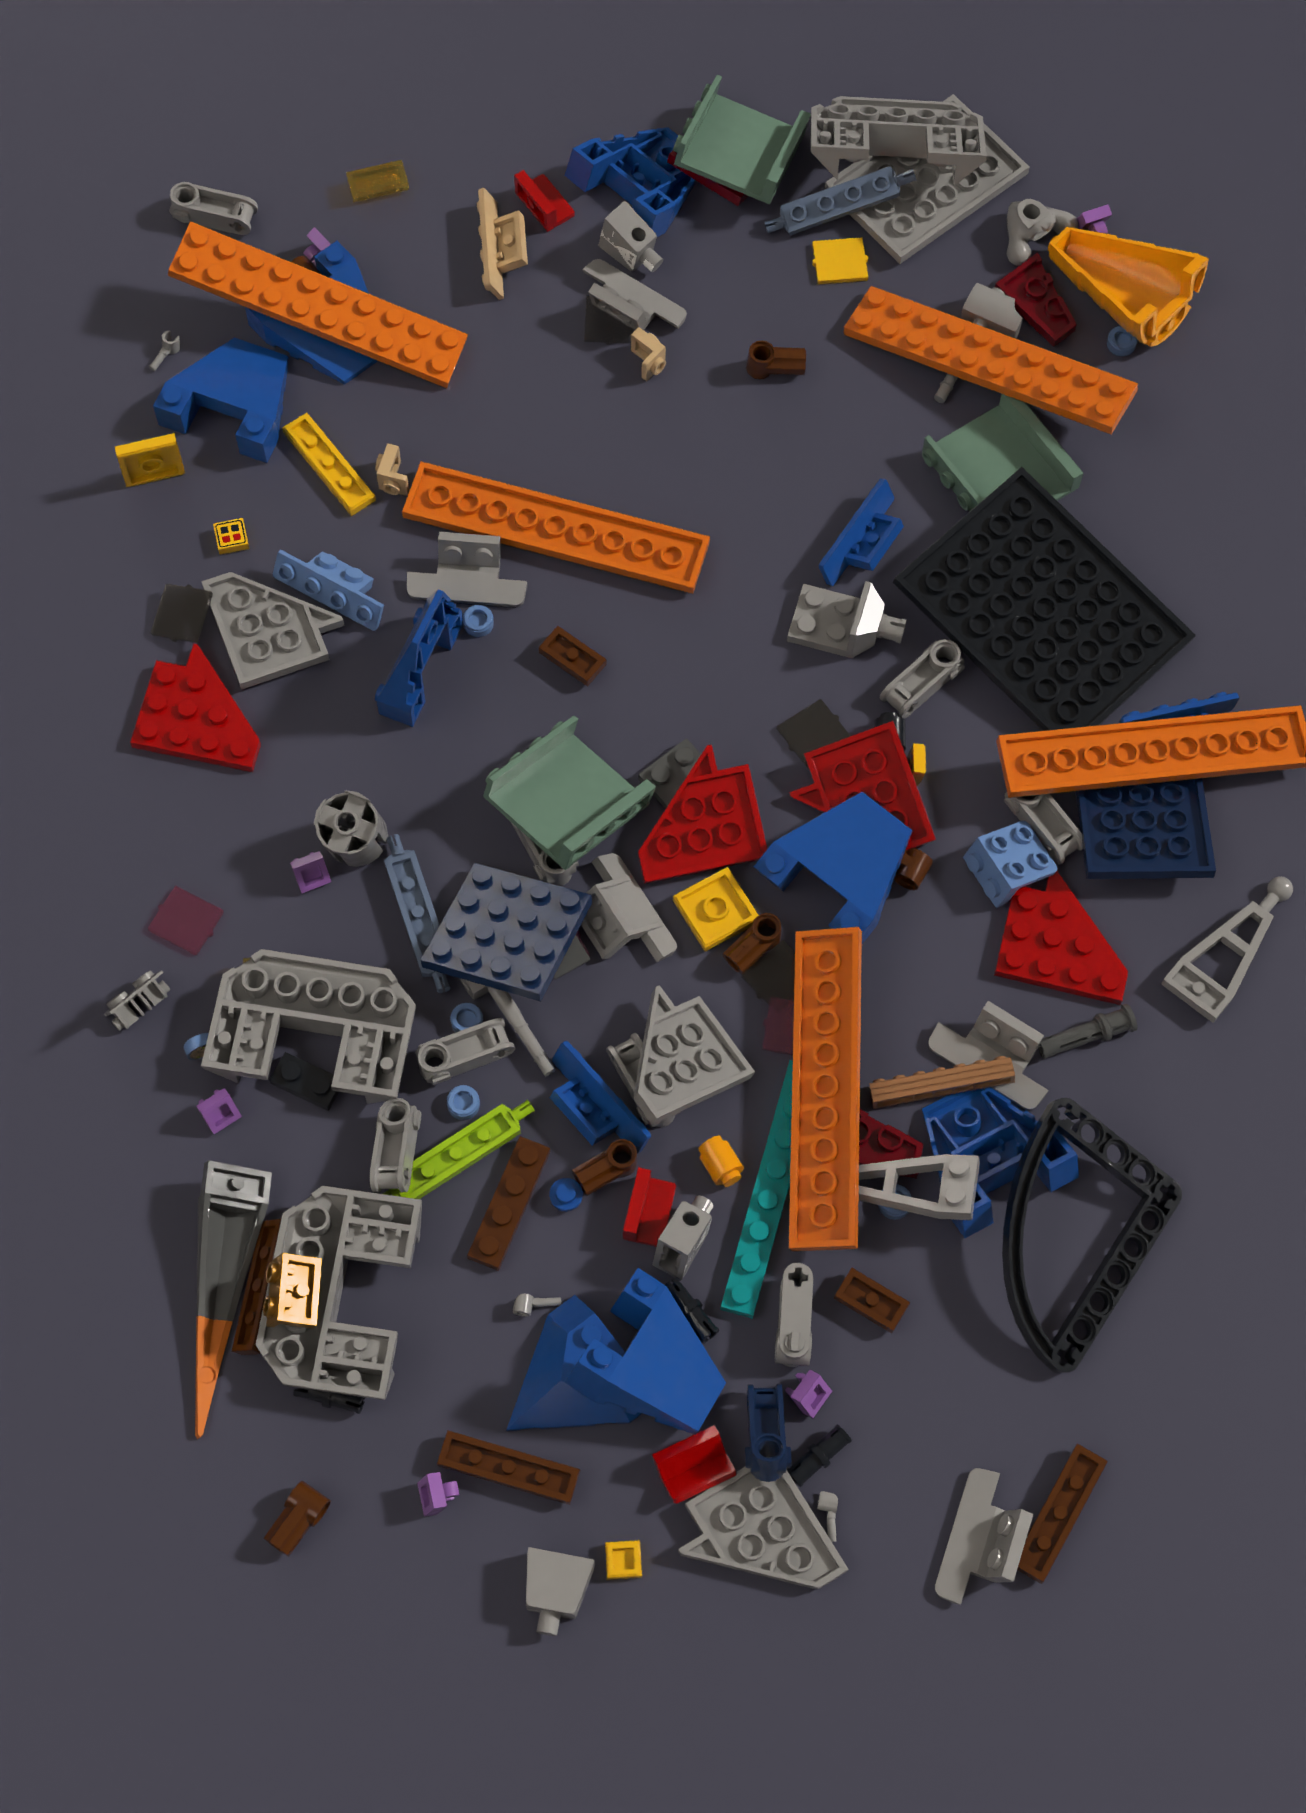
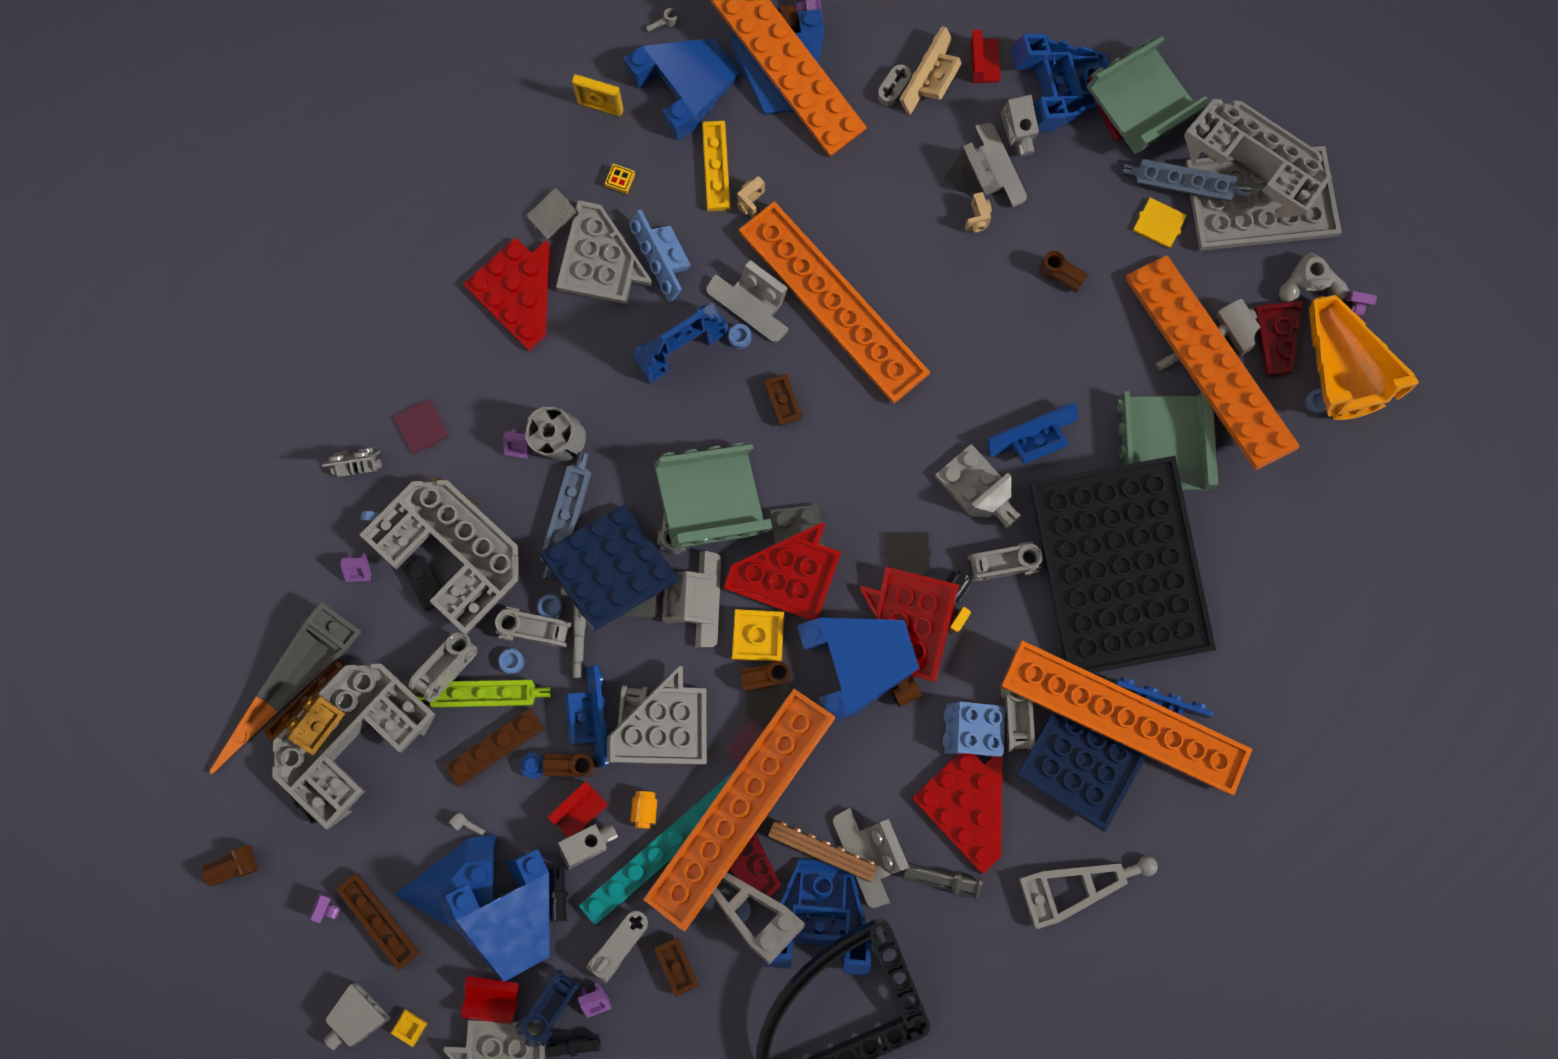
camera: 35 degrees right, 10 degrees up
(471, 278) = (890, 82): none -> light grey beam

